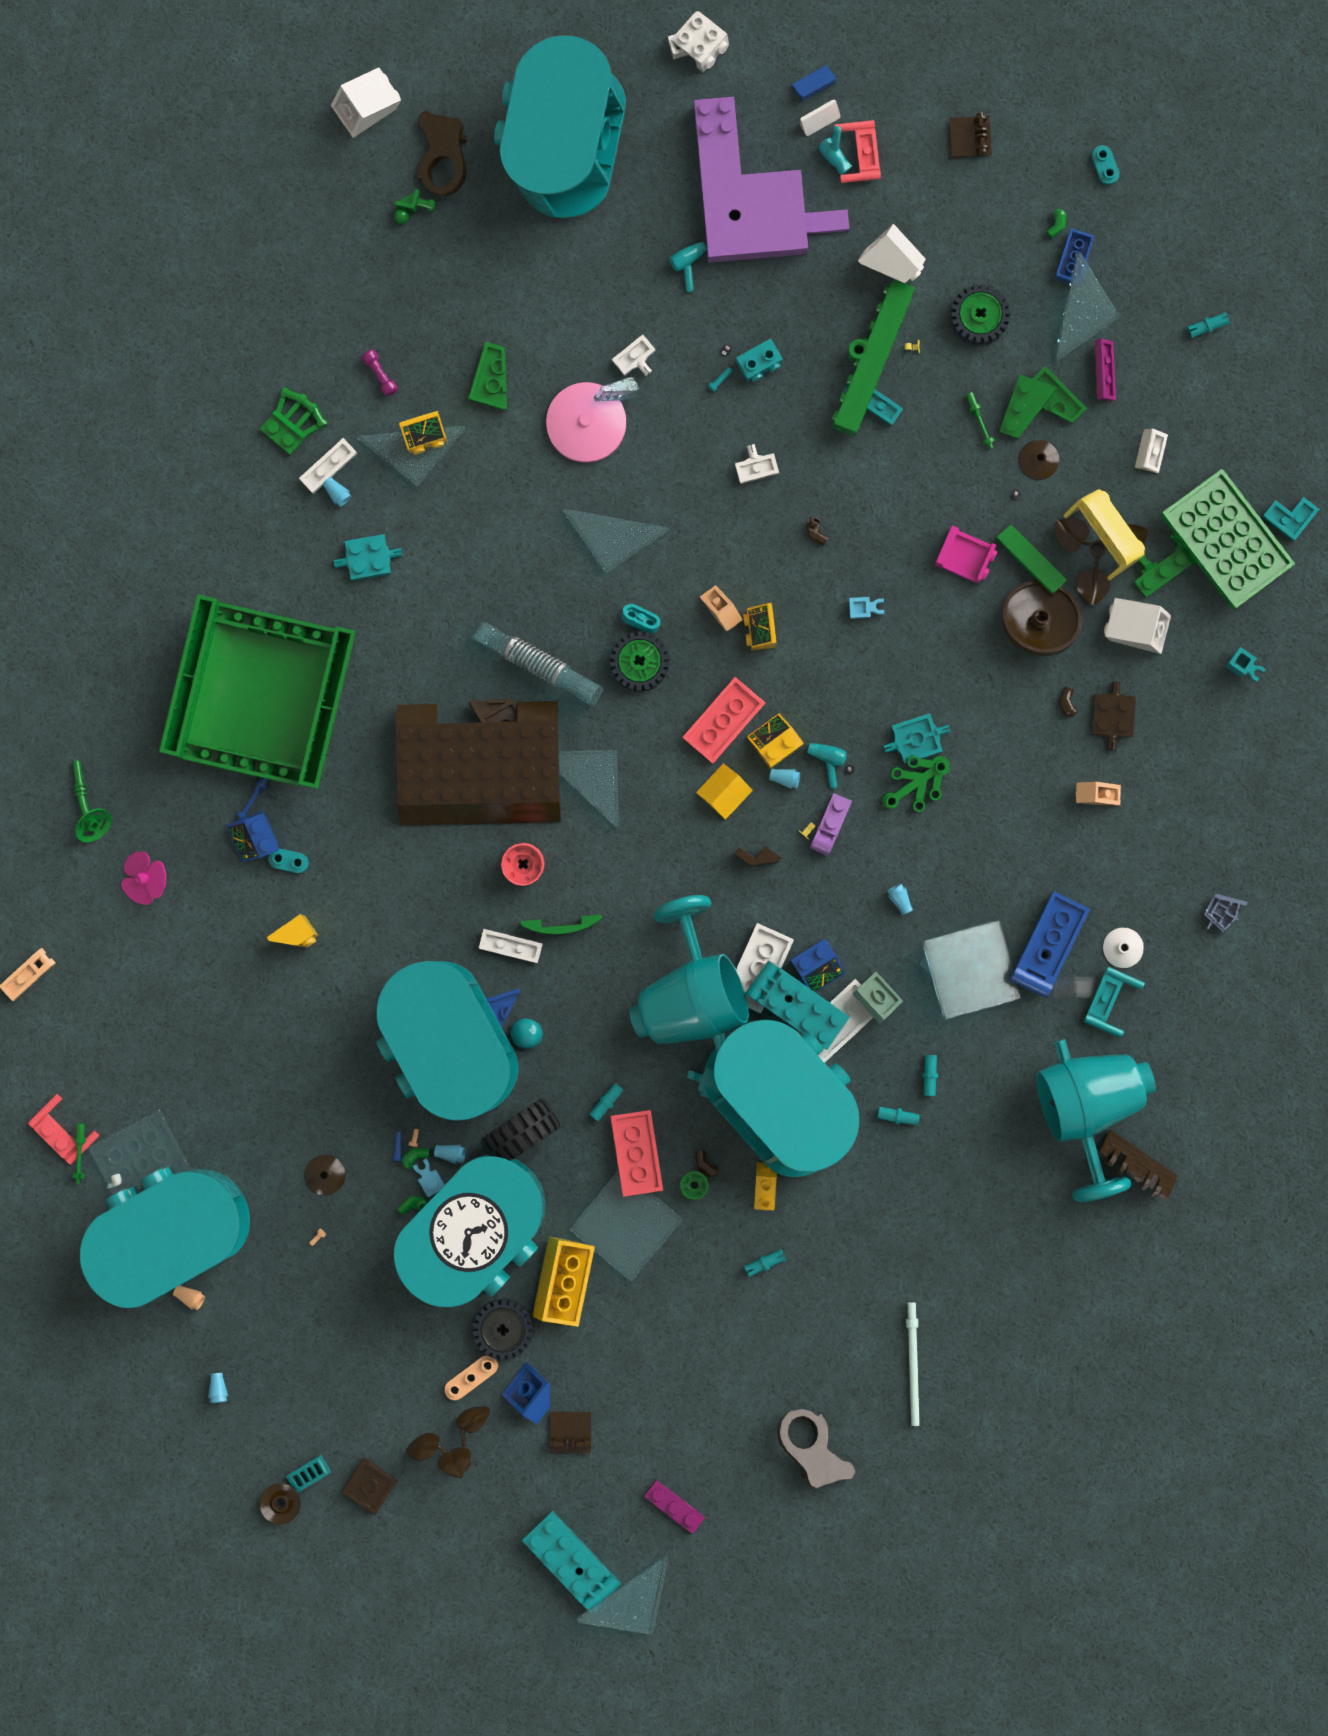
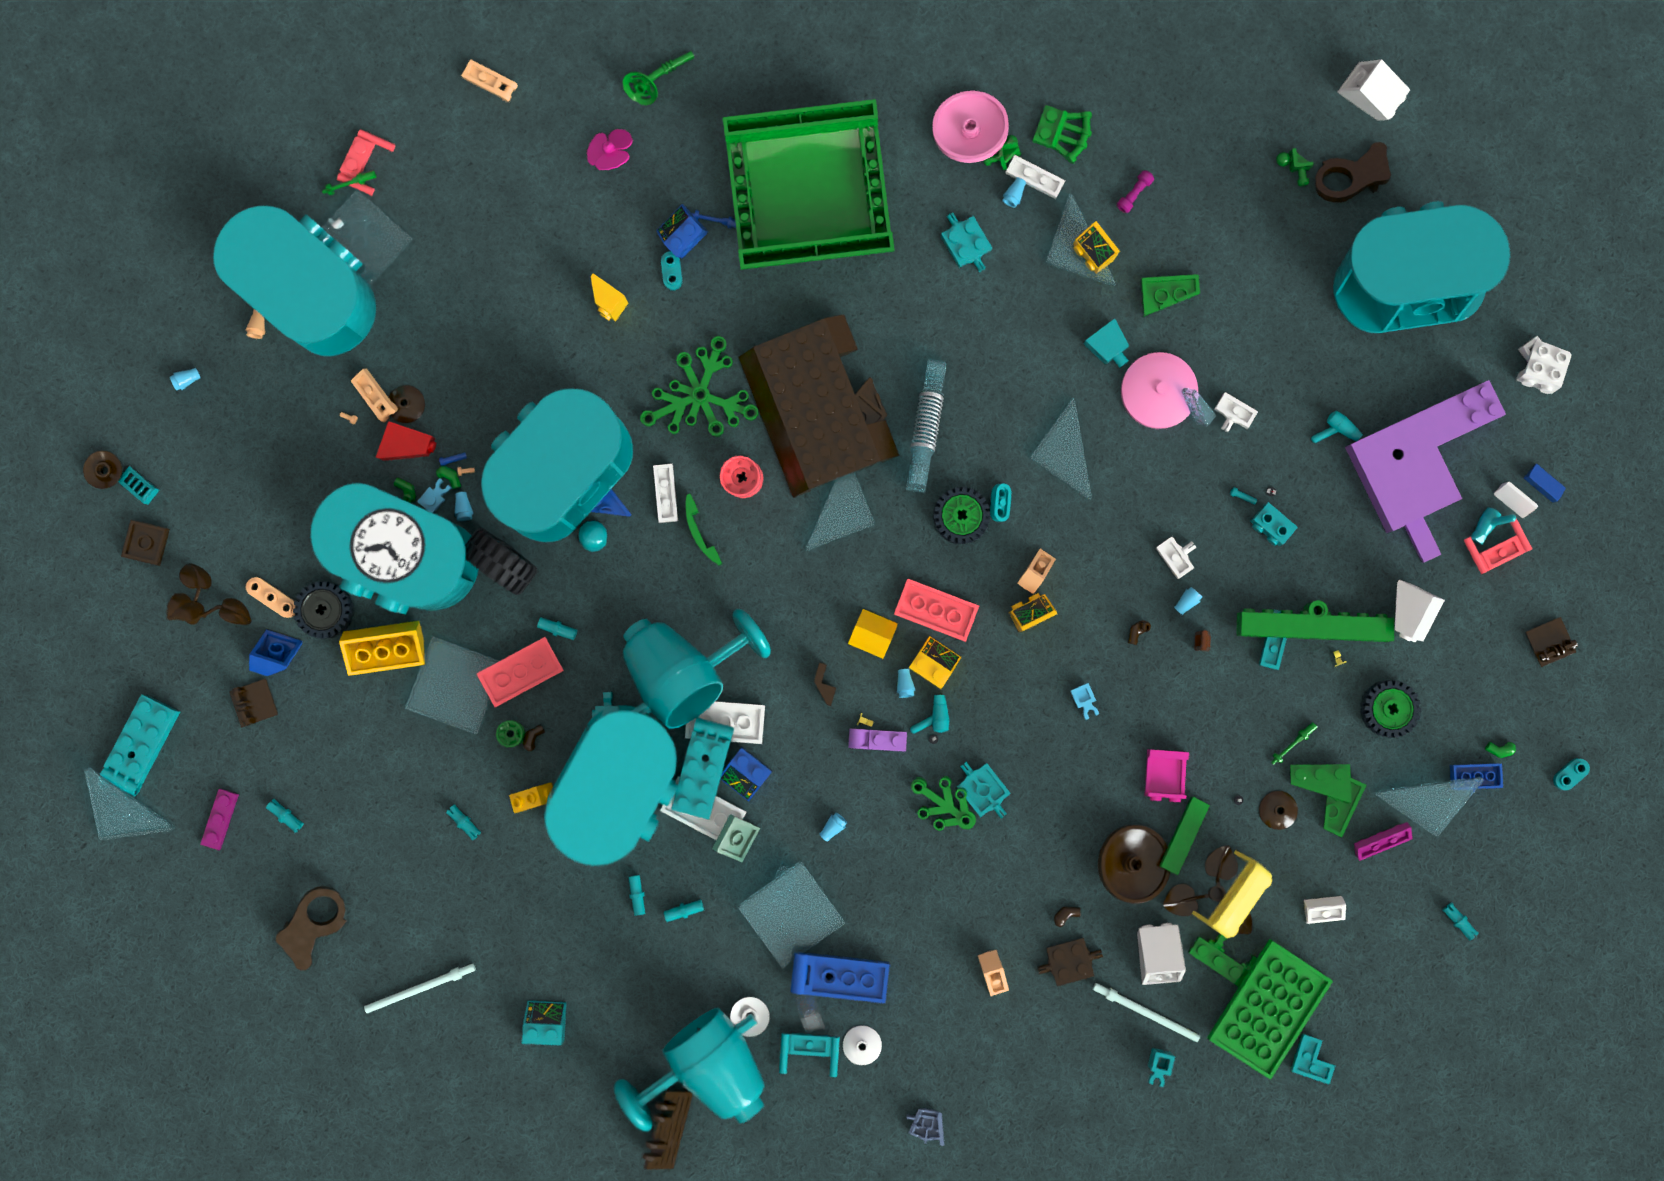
camera: 70 degrees right, 0 degrees up
(255, 511) = (970, 126): none -> bright pink dish
(292, 483) = (1006, 152): none -> green piece
(305, 1203) = (373, 395): none -> light nougat plate
(365, 1188) = (404, 443): none -> red slope
(445, 851) = (679, 404): none -> green plant
(522, 455) = (1108, 344): none -> teal torso
(694, 1439) = (284, 815): none -> teal pin
(803, 470) = (1188, 600): none -> medium azure cone
(848, 472) = (1202, 641): none -> reddish brown slope
(991, 1251) = (544, 1023): none -> slope
(1046, 1040) = (755, 1006): none -> white dish
(1161, 686) = (1113, 995): none -> light aqua bar

